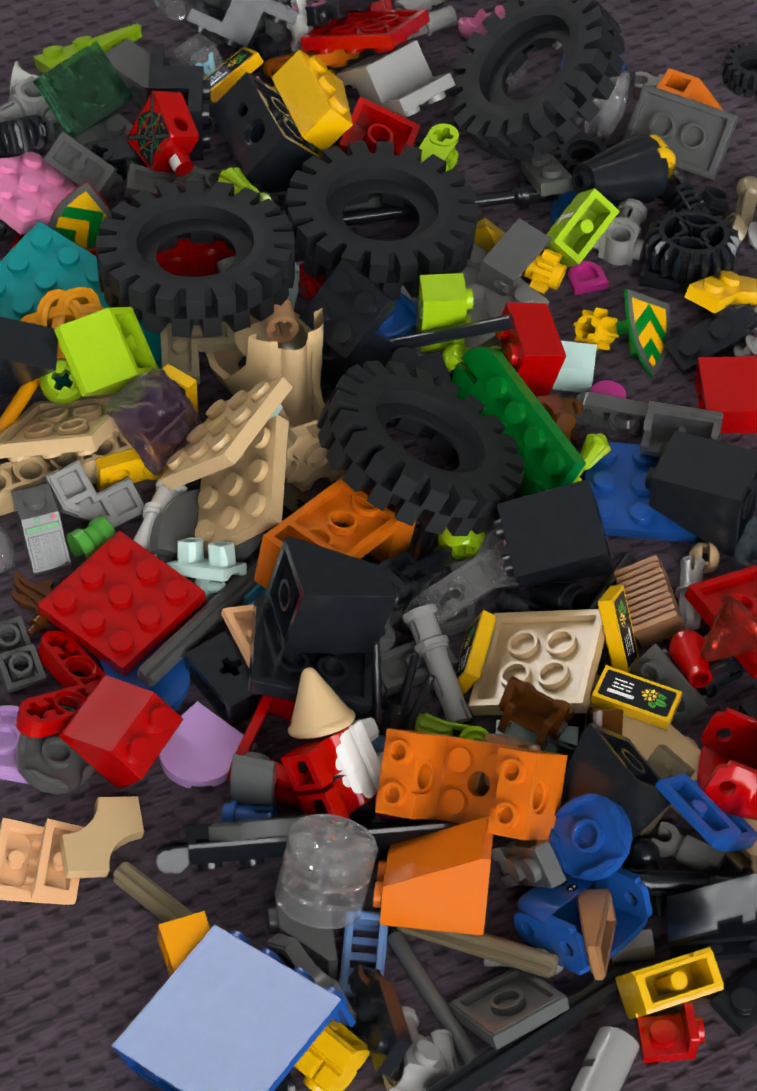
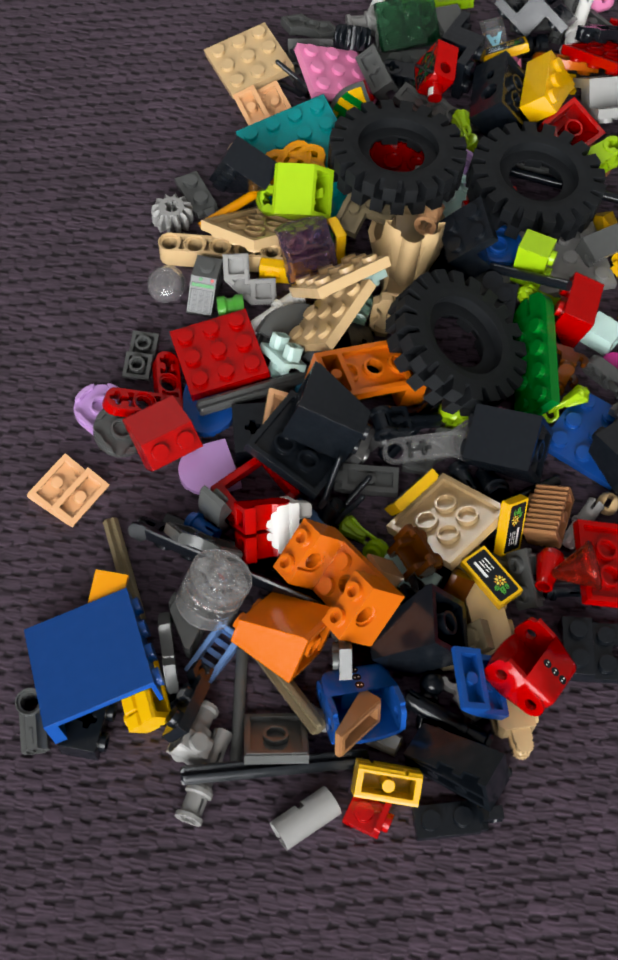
camera: 30 degrees right, 10 degrees up
(28, 596) = (175, 323): reddish brown piece -> none
(113, 825) = (123, 491): tan tile -> none
(318, 709) = (276, 482): tan hat -> none
(432, 647) = (383, 476): light grey pin -> none
(591, 837) = (388, 659): blue tile -> none

